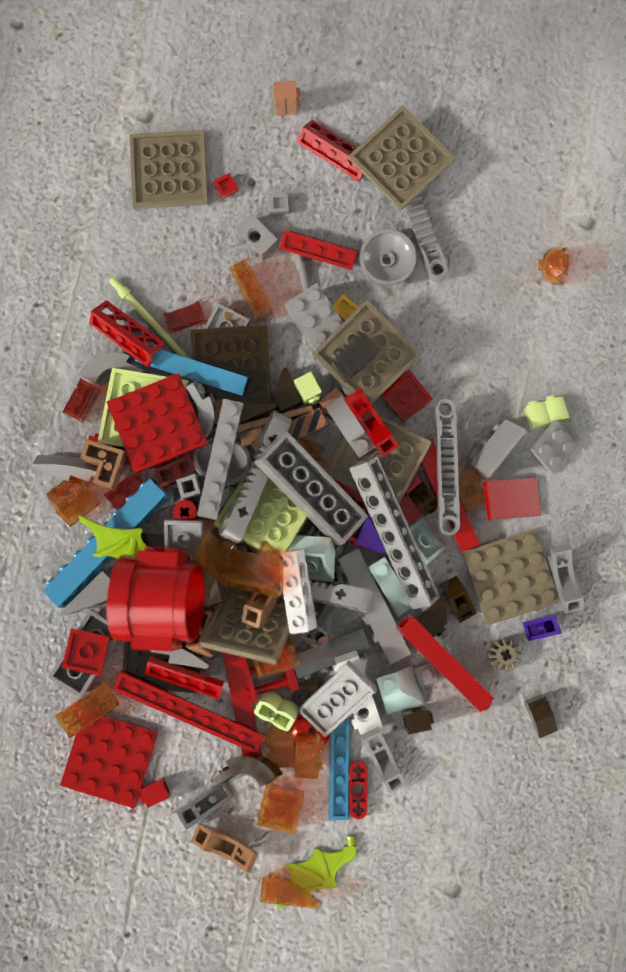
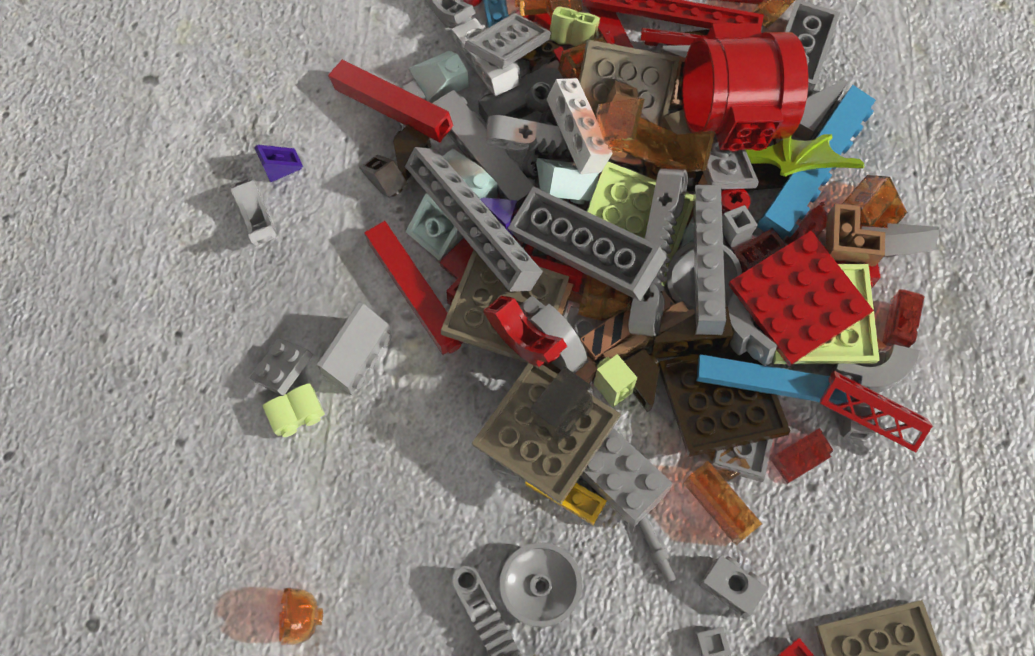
camera: 170 degrees right, 15 degrees down
(86, 652) = (813, 34): red plate -> none
(126, 295) = (891, 474): yellowish green bar -> none
(318, 249) = (640, 580): red fence -> none
(406, 396) = (478, 398): red plate -> none
(417, 720) = (413, 40): dark brown brick -> none
(424, 499) = (439, 277): dark brown bracket -> none
(447, 467) = (416, 310): light grey gear -> none
(477, 498) = (382, 284): clear orange brick -> none
(499, 658) = (320, 126): dark tan gear -> none
(510, 577) = (321, 212): dark tan plate -> none
(511, 498) = (329, 294): red tile -> none
(541, 715) = (274, 76): dark brown slope -> none

